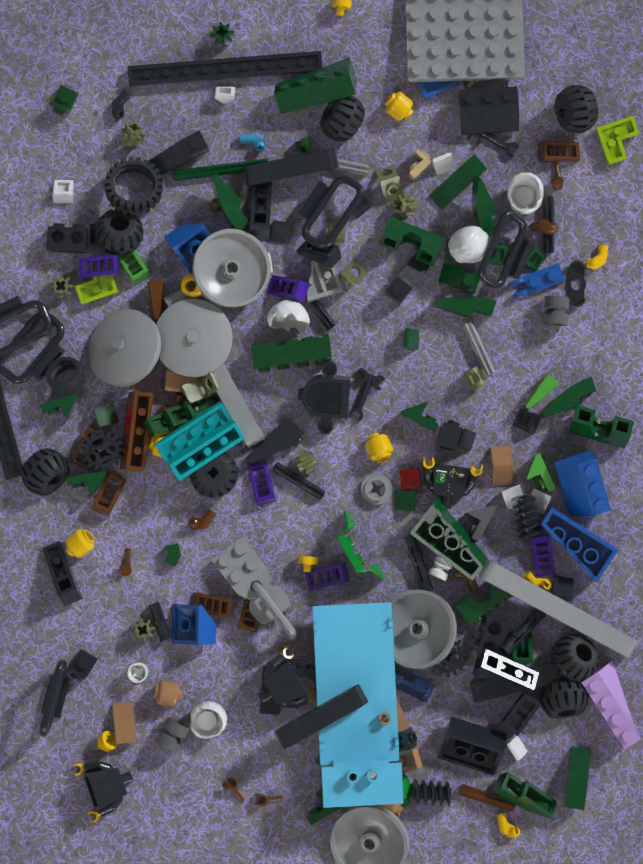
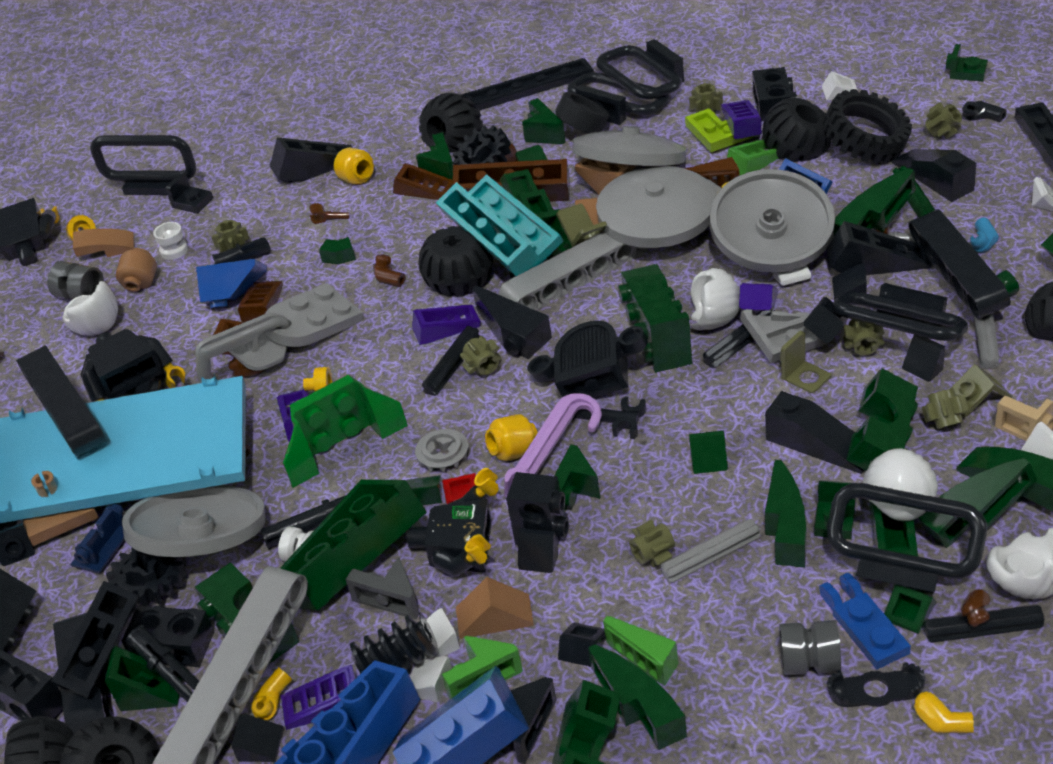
camera: 95 degrees right, 45 degrees down
(386, 427) = (552, 431): none -> lavender piece

